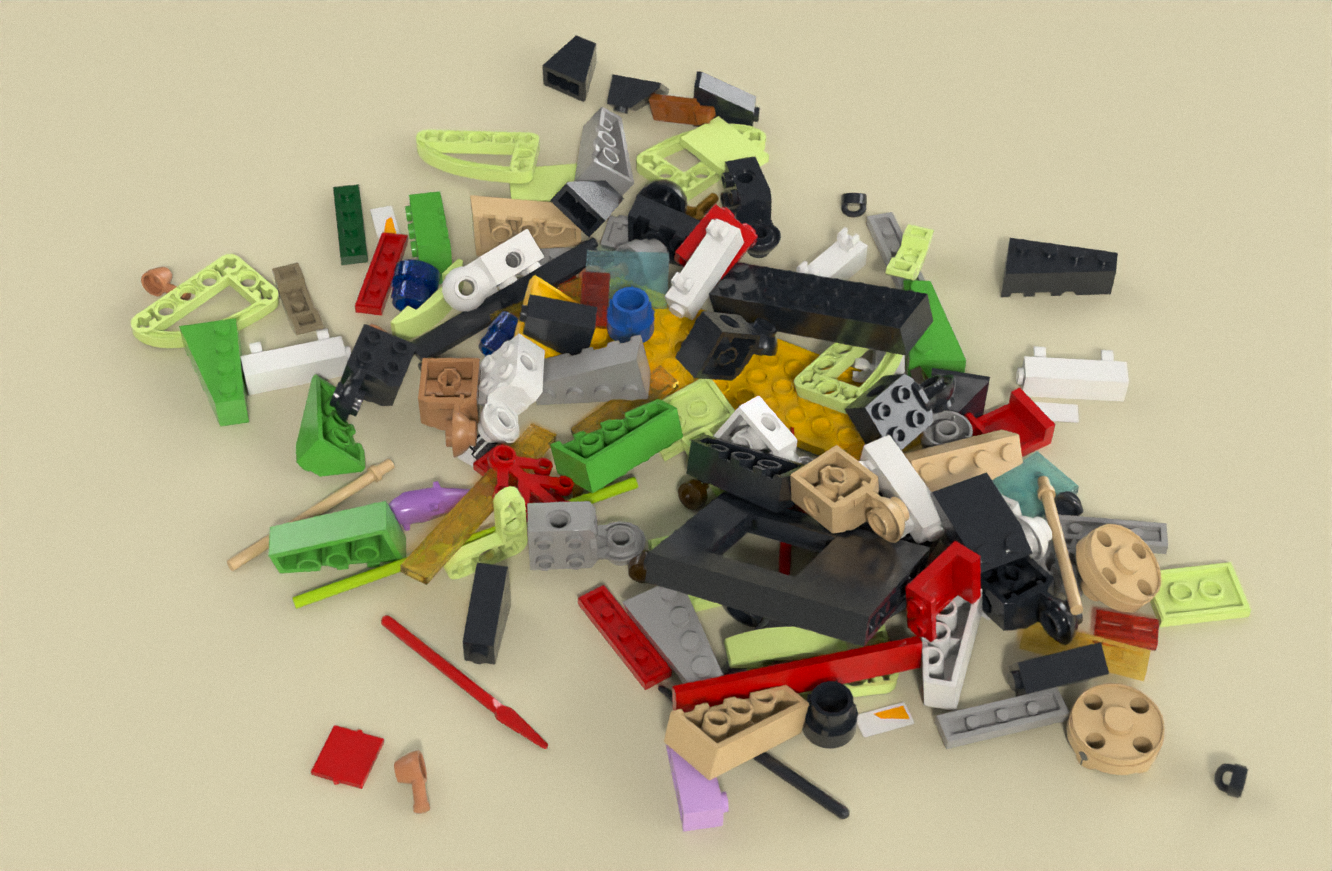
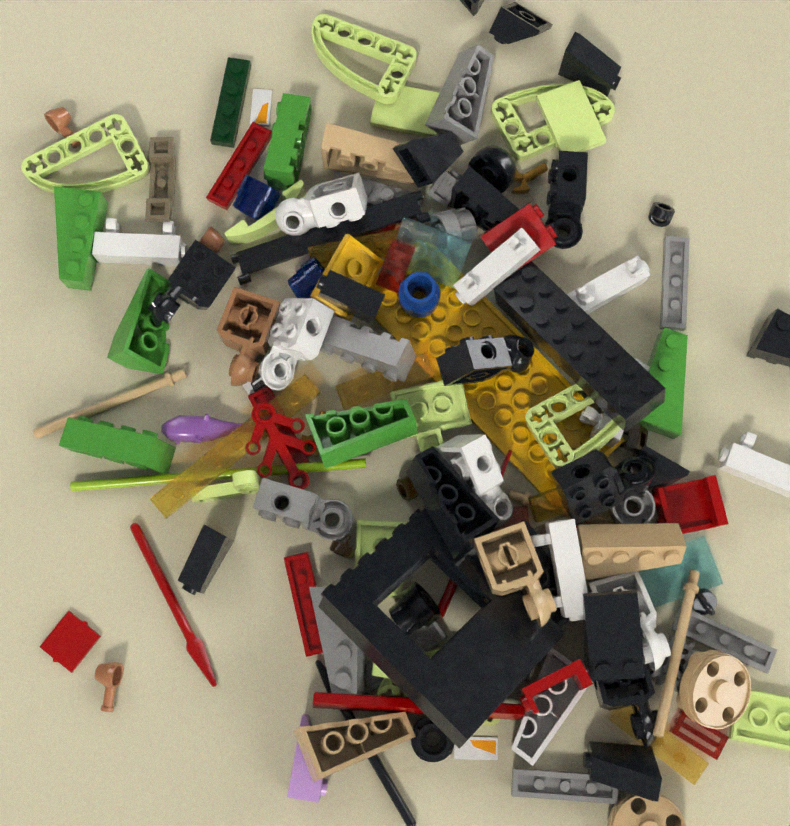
camera: 20 degrees right, 30 degrees up
(680, 110) = (549, 61): dark orange hinge -> none
(911, 253) = (681, 300): yellowish green slope -> none
(1060, 412) = (738, 495): white sticker -> none

